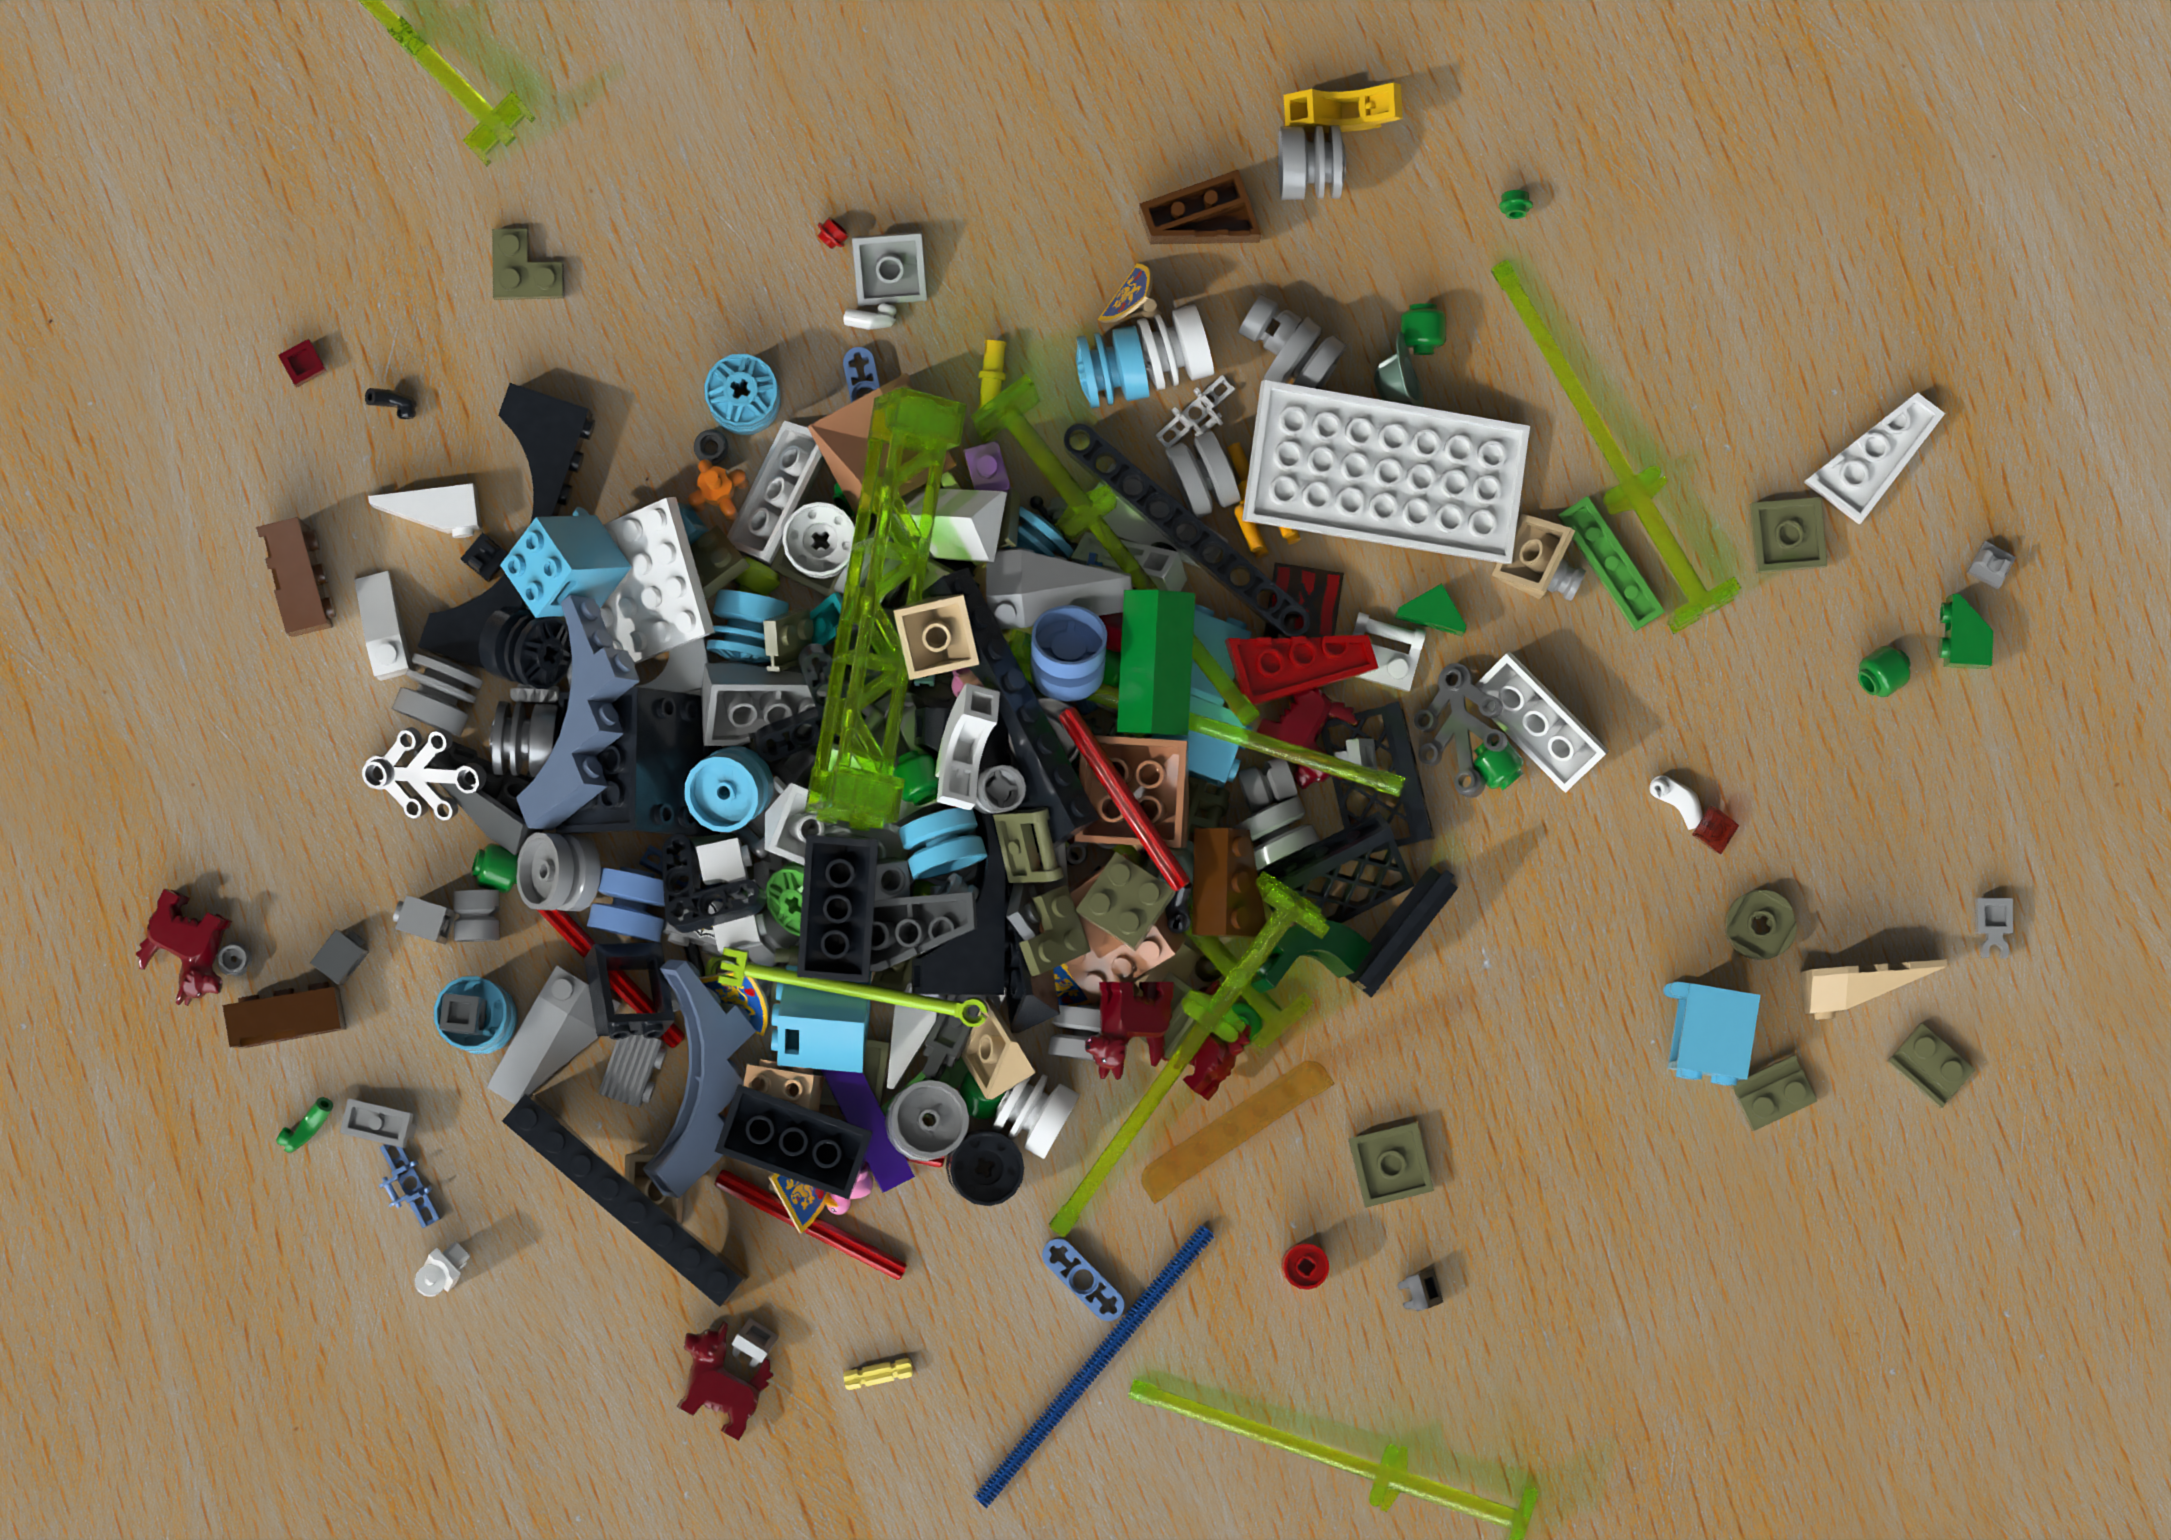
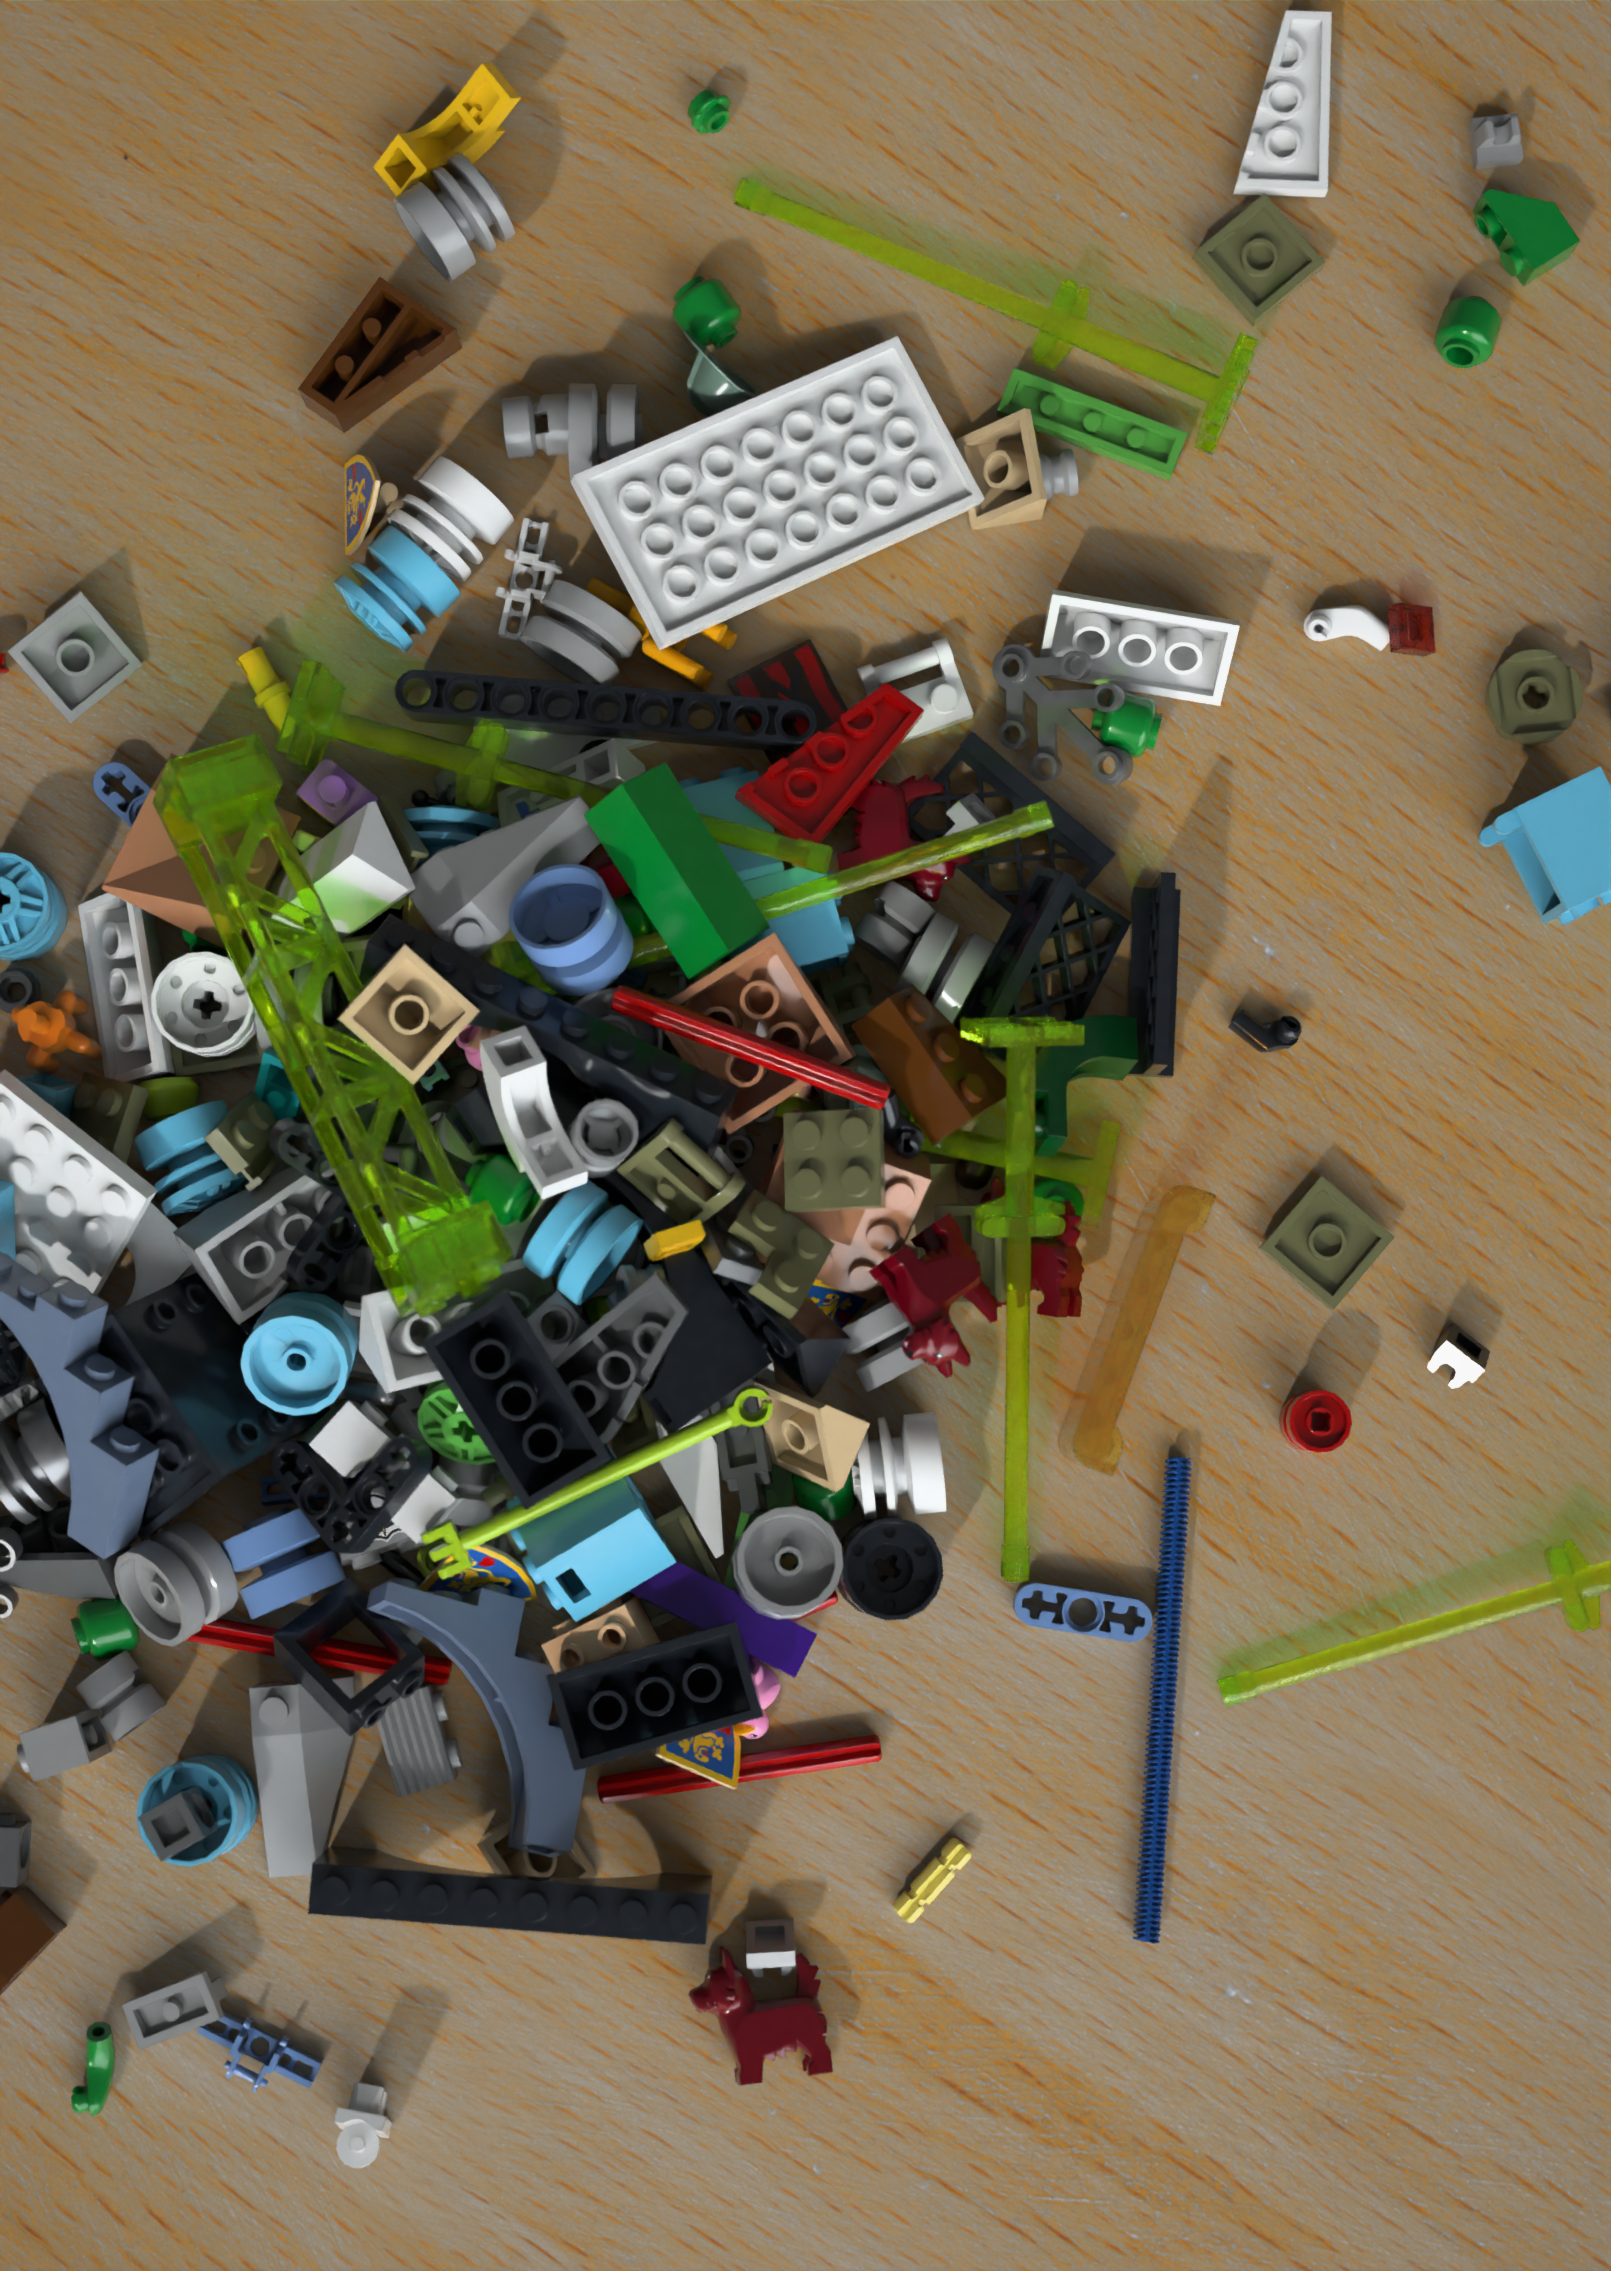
camera: 35 degrees left, 0 degrees up
(866, 320) = (107, 718): white arm -> none
(997, 881) = (674, 1240): none -> yellow tile
(1433, 610) = (938, 609): green slope -> none
(1446, 1014) = (1266, 1036): none -> black arm

